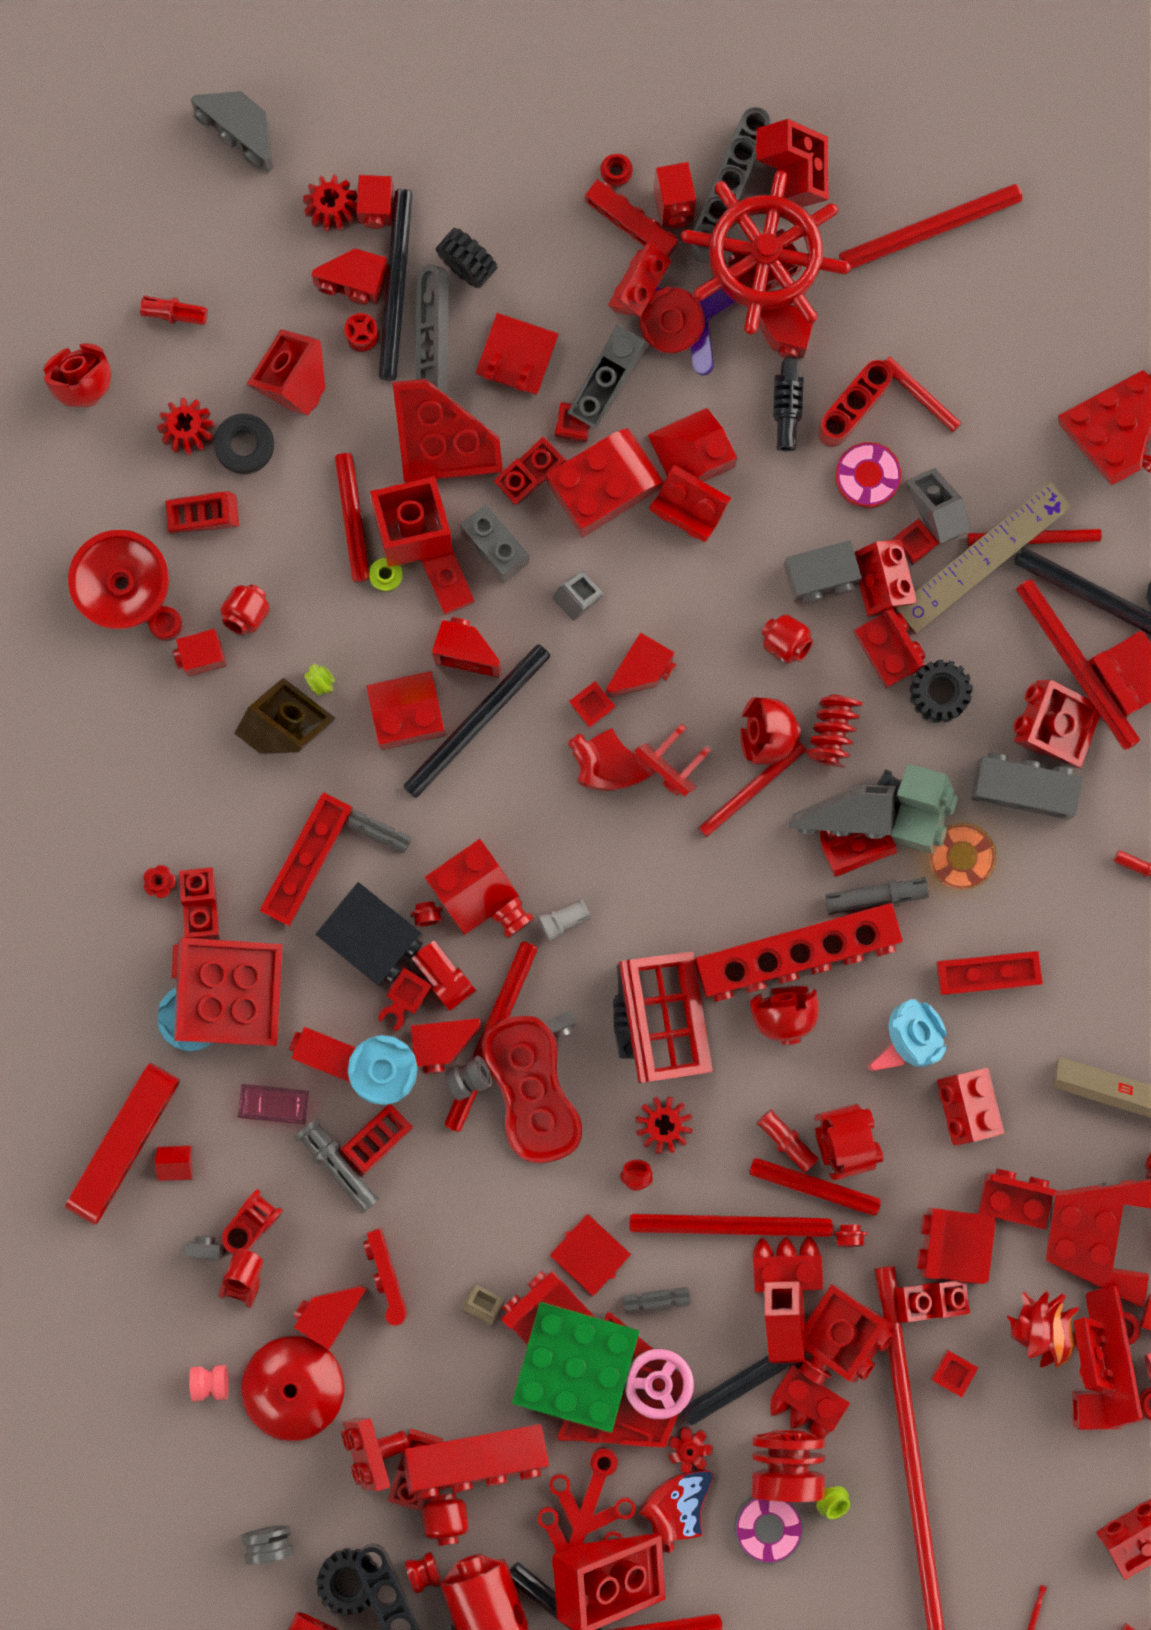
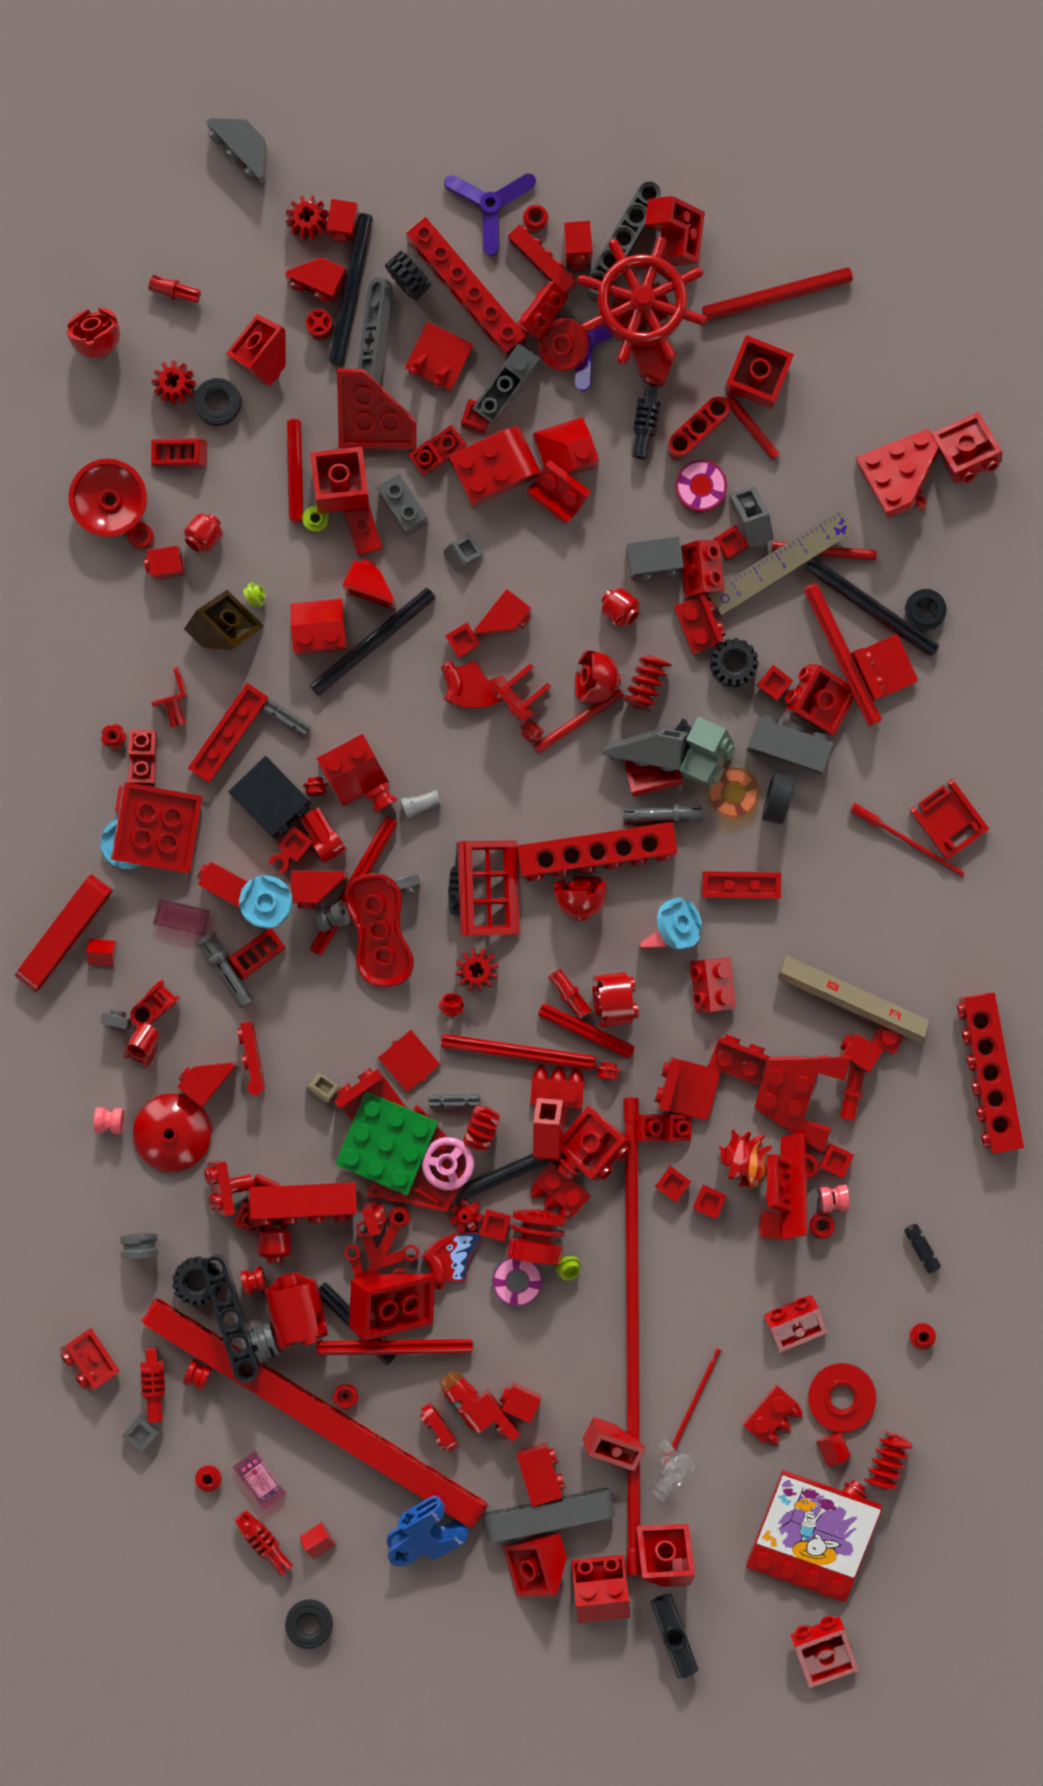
camera: 10 degrees right, 5 degrees up
(230, 830) = (172, 702): none -> red bracket
(540, 265) = (465, 287): none -> red brick
(559, 172) = (501, 197): none -> dark purple piece
(574, 1468) = (374, 1217): none -> red plate
(694, 809) = (531, 731): none -> red plate
(697, 1332) = (481, 1128): none -> red gear
(730, 1457) = (495, 1224): none -> red plate
(922, 324) = (758, 372): none -> red brick
(995, 710) = (774, 683): none -> red plate
(1005, 1390) = (709, 1201): none -> red plate
(1022, 855) = (778, 798): none -> black tyre

